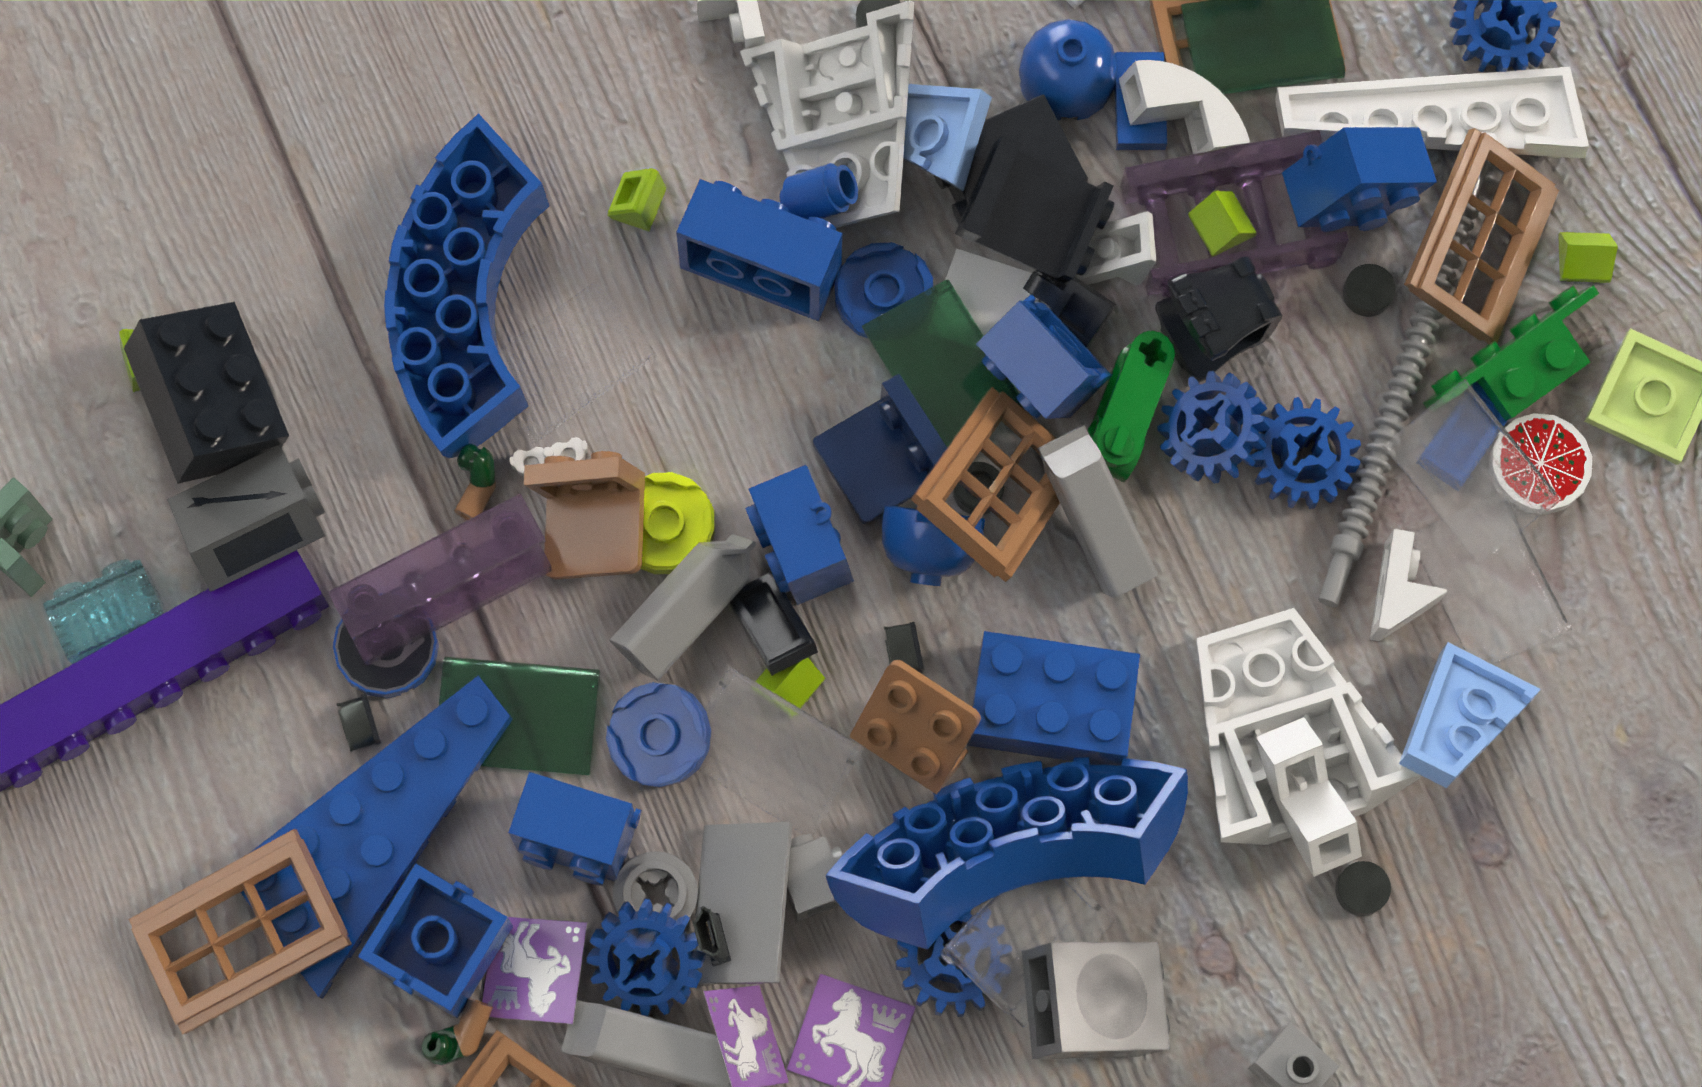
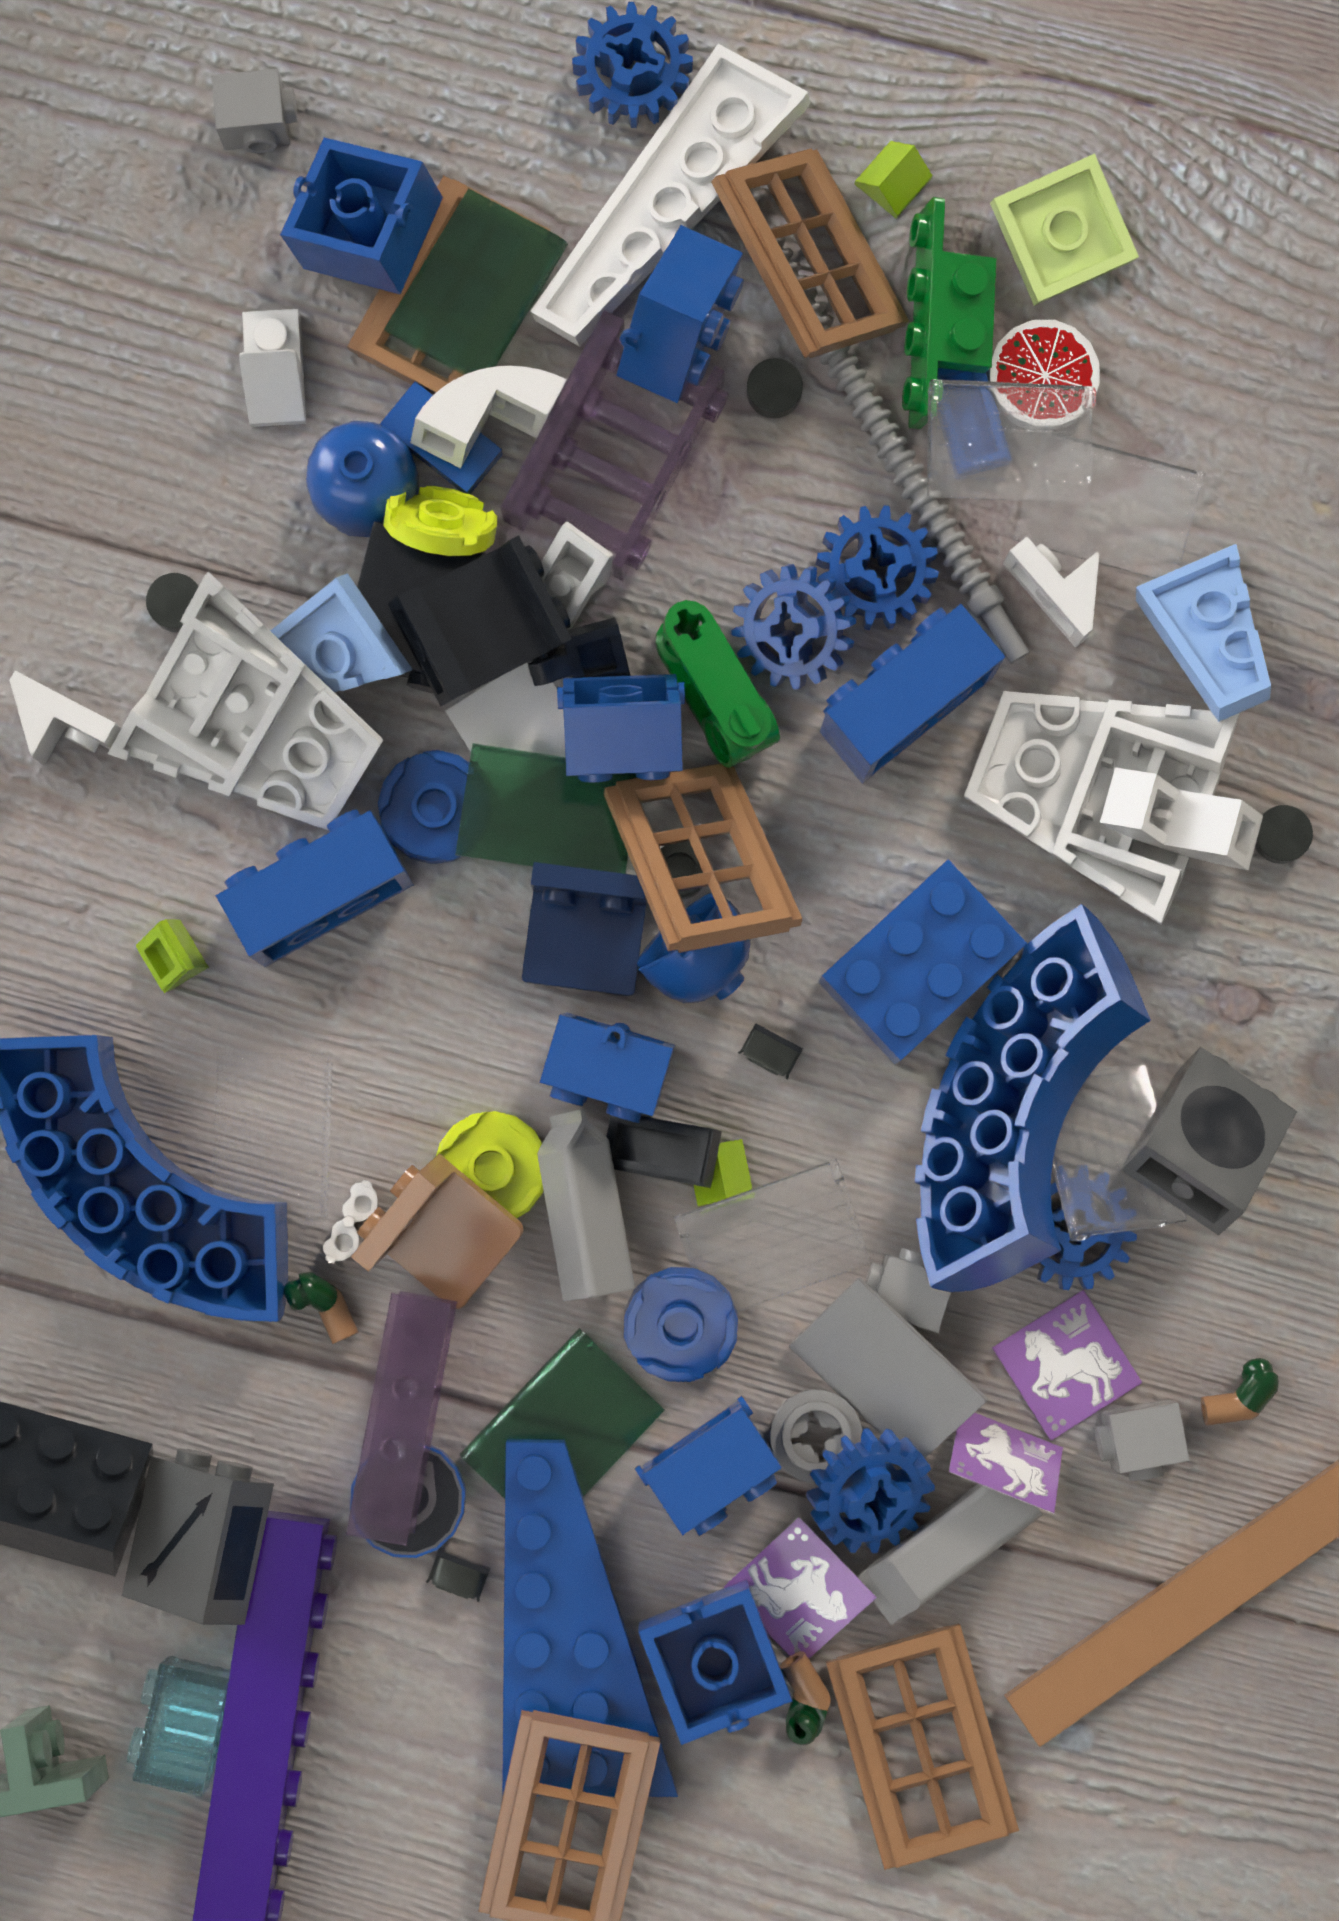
camera: 50 degrees left, 10 degrees up
(711, 936) = (898, 1421): pearl dark grey piece -> none
(820, 191) = (307, 796): blue brick -> none
(916, 726) = (860, 1103): medium nougat bracket -> none
(1081, 138) = (441, 522): none -> neon yellow tile
(1097, 512) = (795, 792): light grey piece -> none
(1217, 315) = (698, 541): black piece -> none
(1221, 222) = (618, 465): lime slope -> none
(1235, 538) = (909, 690): none -> blue brick

